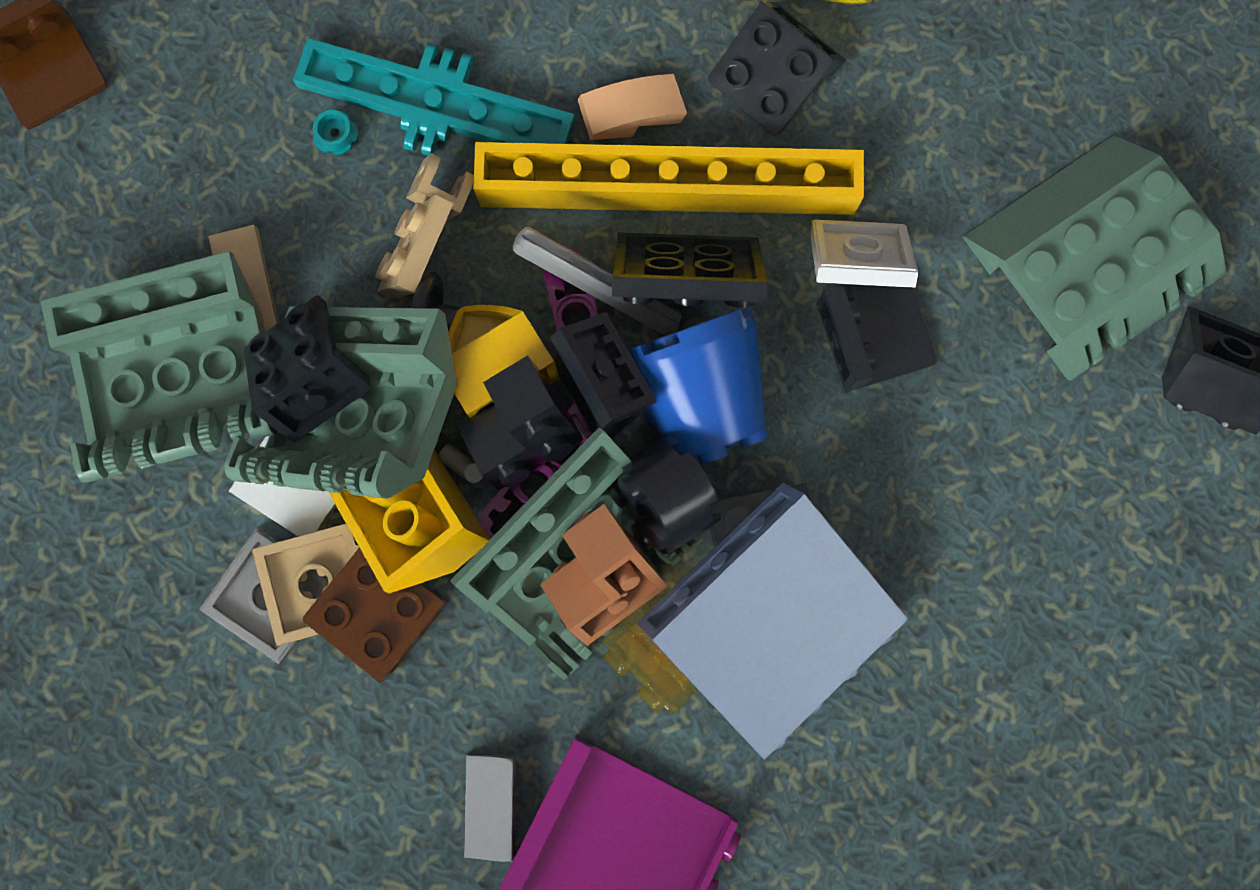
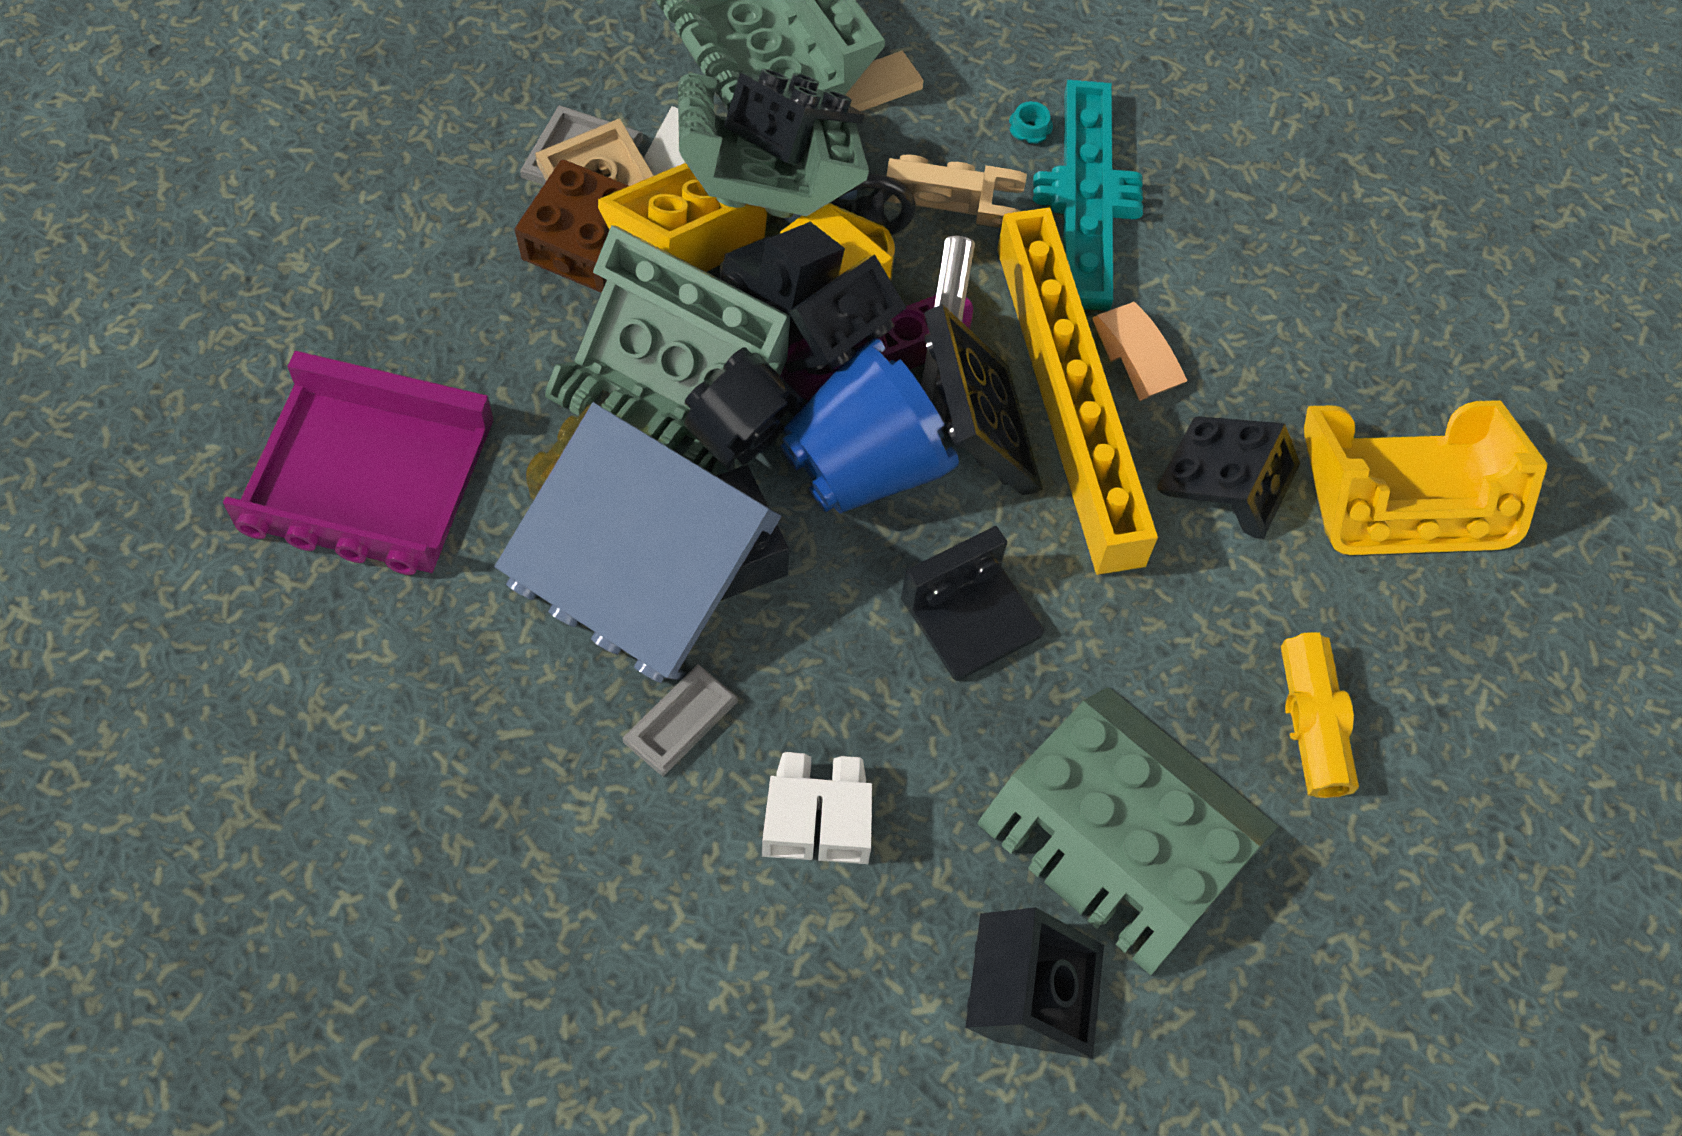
camera: 70 degrees right, 20 degrees down
(490, 807) = (417, 357): light grey slope -> none
(604, 580) = (651, 374): nougat brick -> none
(863, 253) = (1051, 571): white tile -> none
(930, 614) = (680, 720): none -> light grey tile
(1030, 68) = (1319, 715): none -> yellow piece
(1049, 513) = (843, 805): none -> white hips

